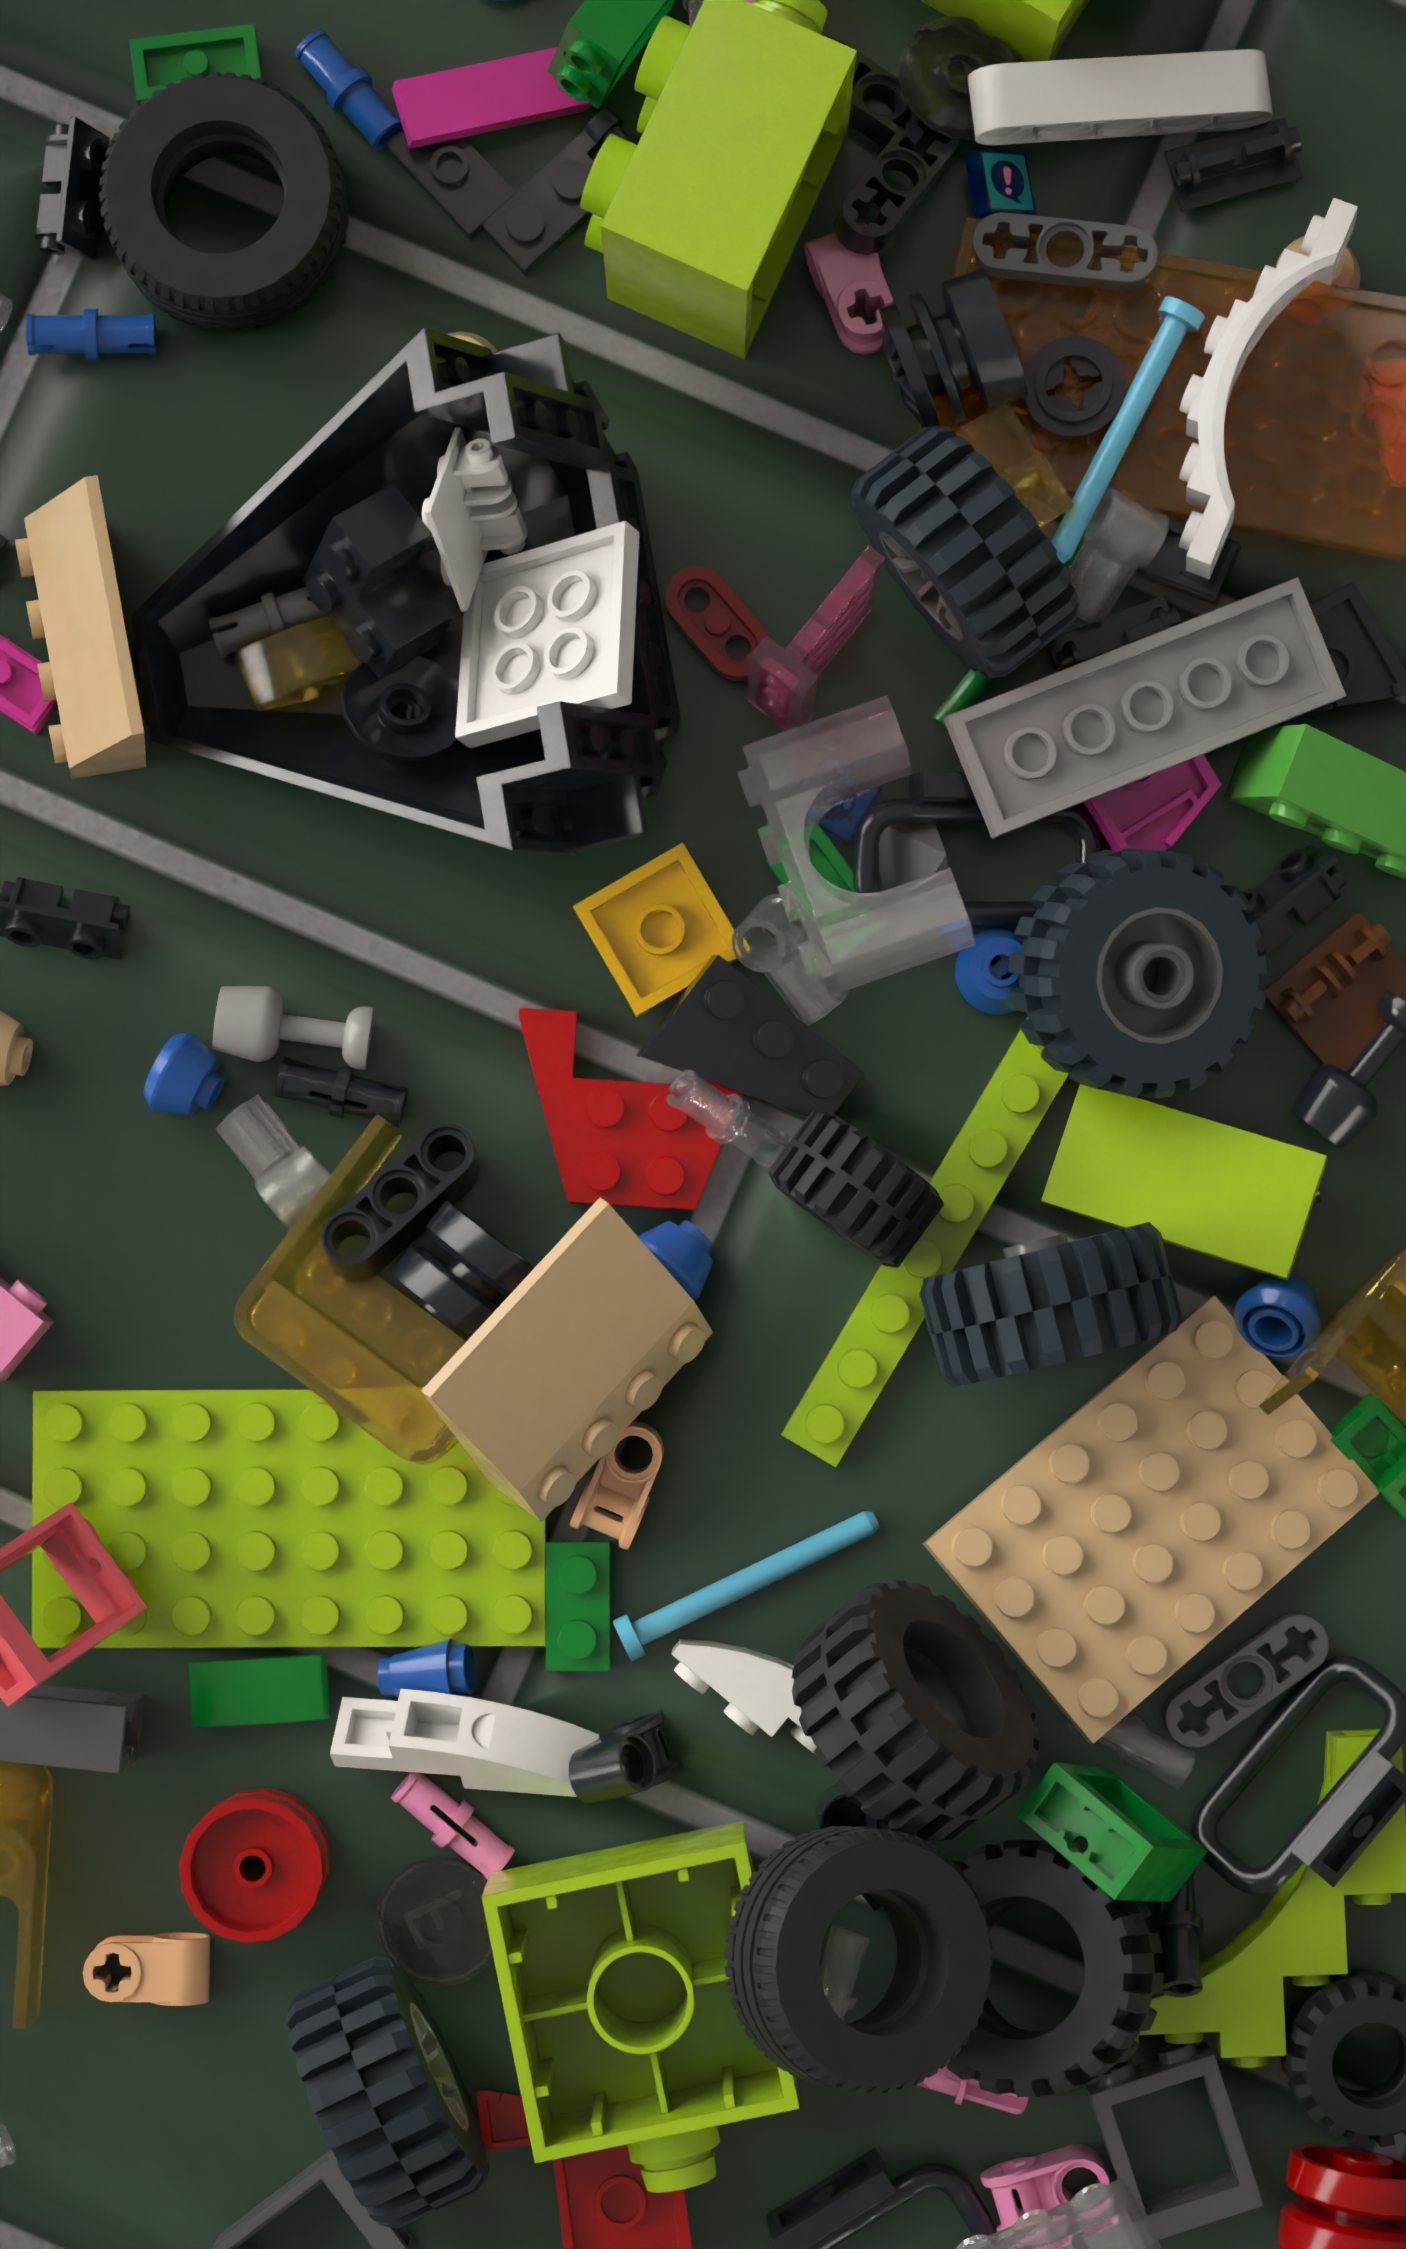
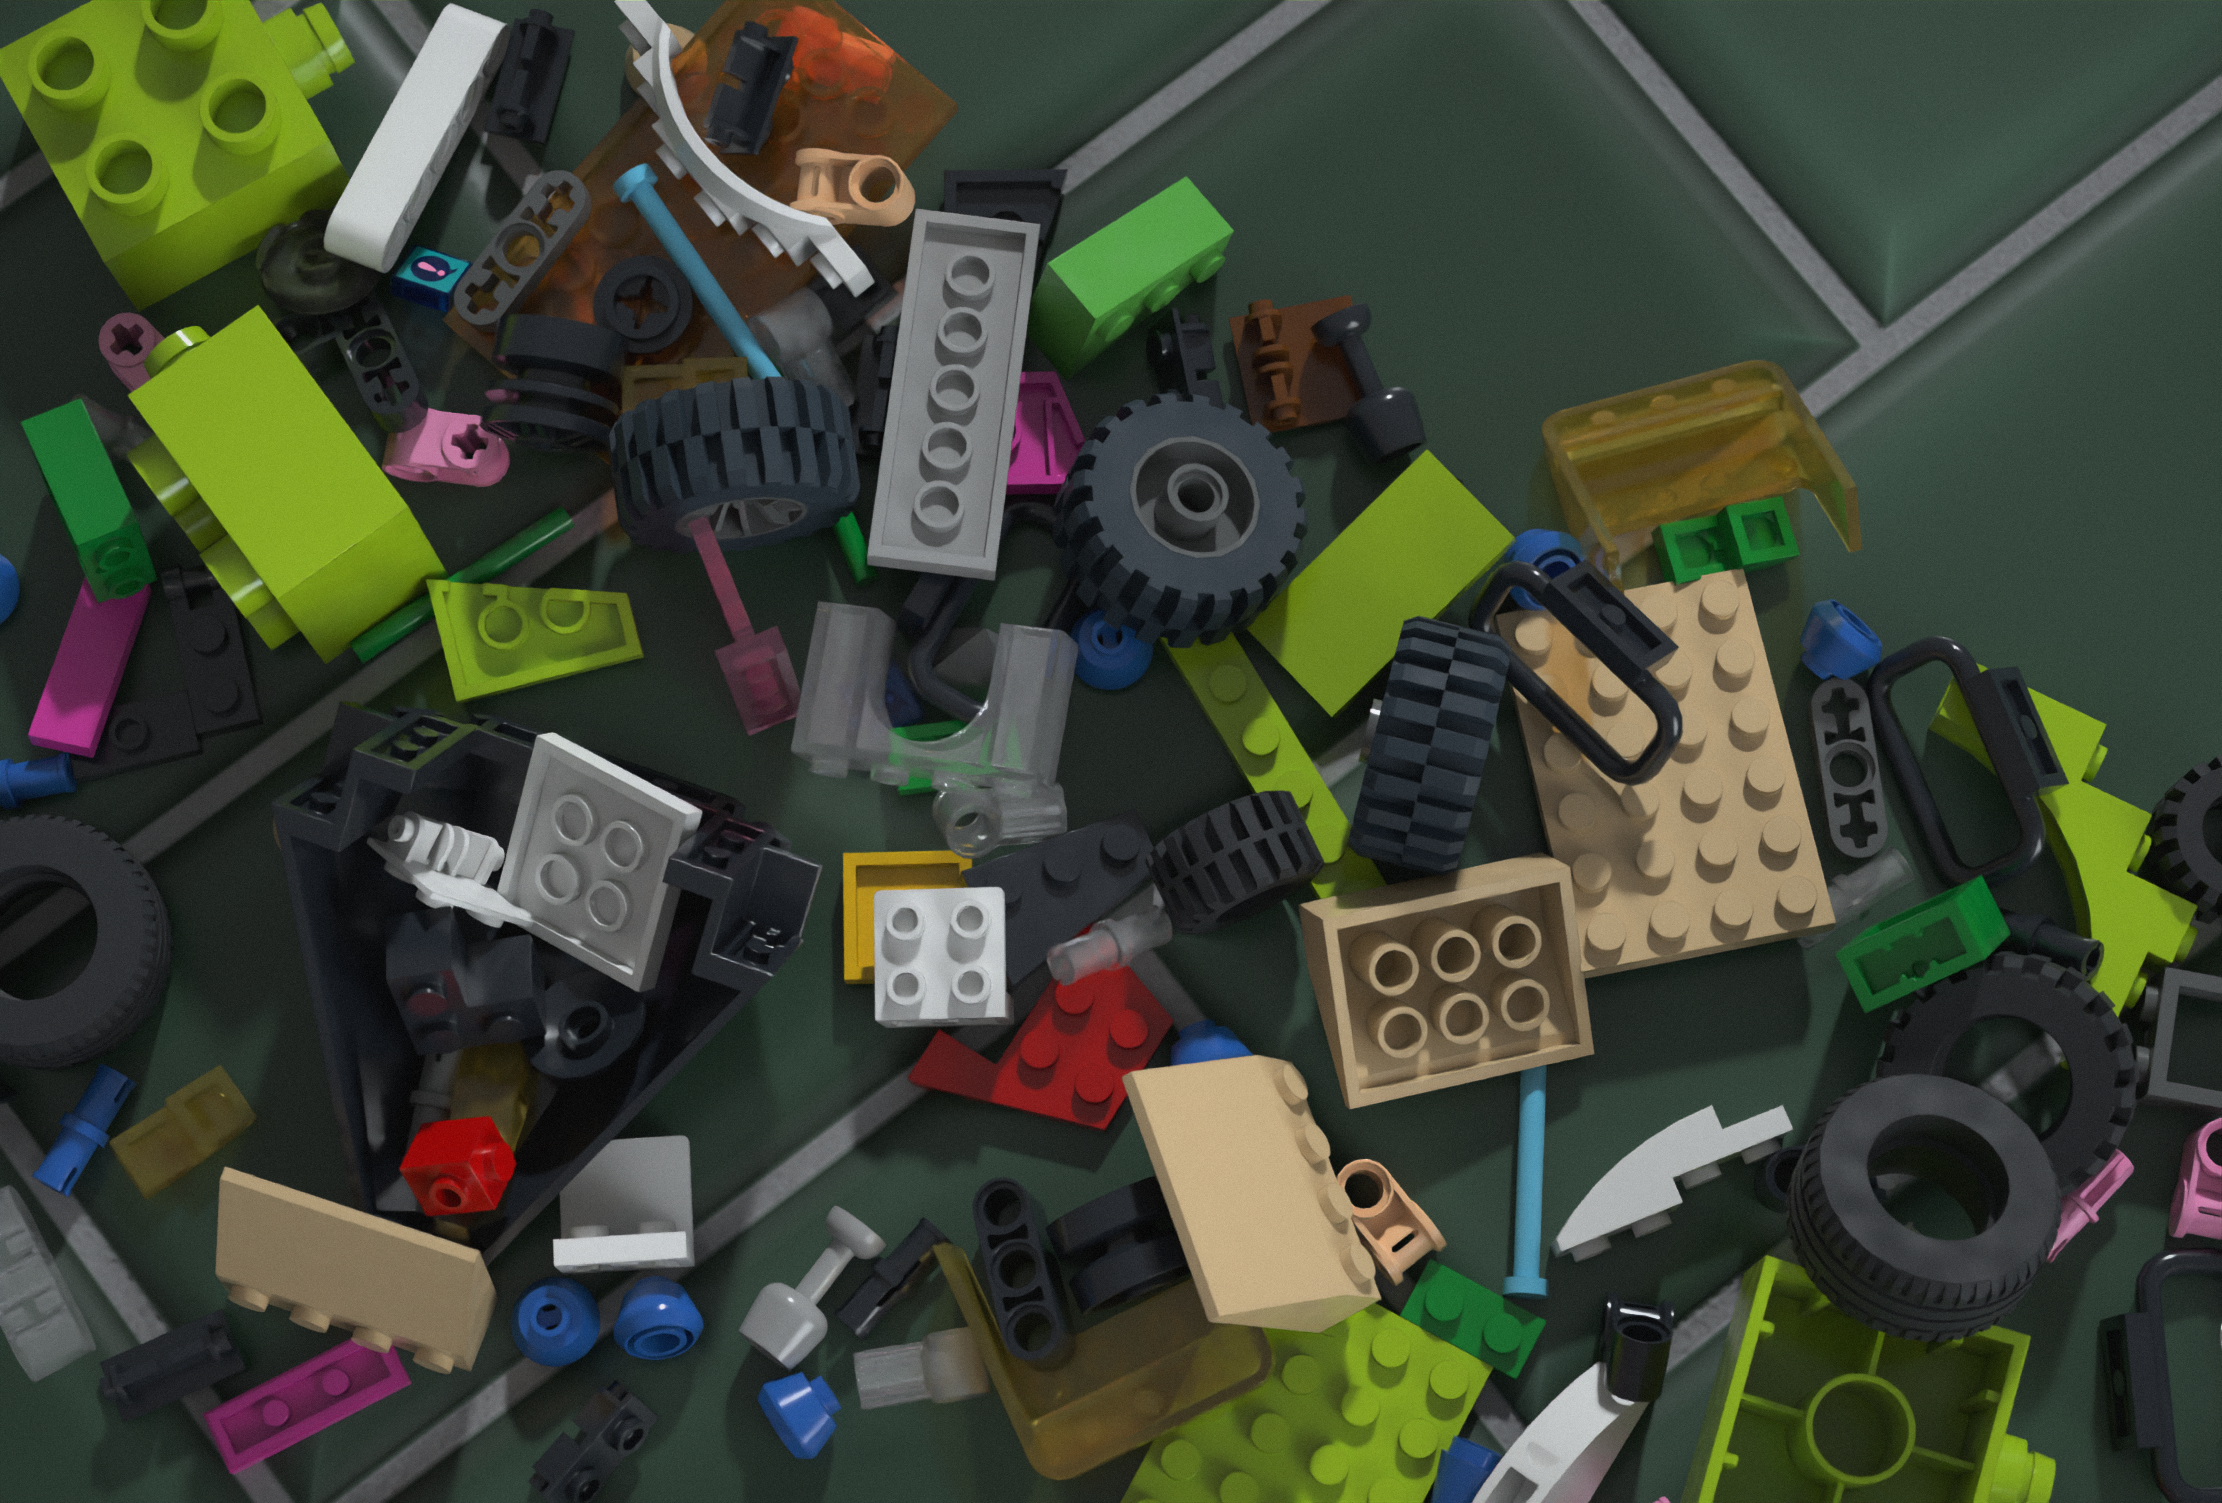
camera: 60 degrees left, 10 degrees down
(137, 418) = (183, 1132): none -> clear yellow slope
(162, 840) = (574, 1313): none -> blue cone
(196, 911) = (657, 1320): none -> blue cone
(222, 670) = (458, 1166): none -> red brick
(275, 836) = (629, 1209): none -> white bracket
(633, 979) = (941, 958): none -> white bracket
(718, 624) = (668, 716): dark red plate -> none
(725, 457) = (525, 636): none -> lime wing
(741, 374) = (478, 572): none -> green bar
(858, 1429) = (1449, 978): none -> tan slope
(915, 1711) = (1725, 1052): black tyre -> none
(1236, 1415) = (1615, 635): none -> black bar
(1273, 498) = (839, 187): none -> light nougat piece
(1291, 376) = (743, 117): none -> black hinge
(1357, 1613) = (1838, 642): none -> blue cone

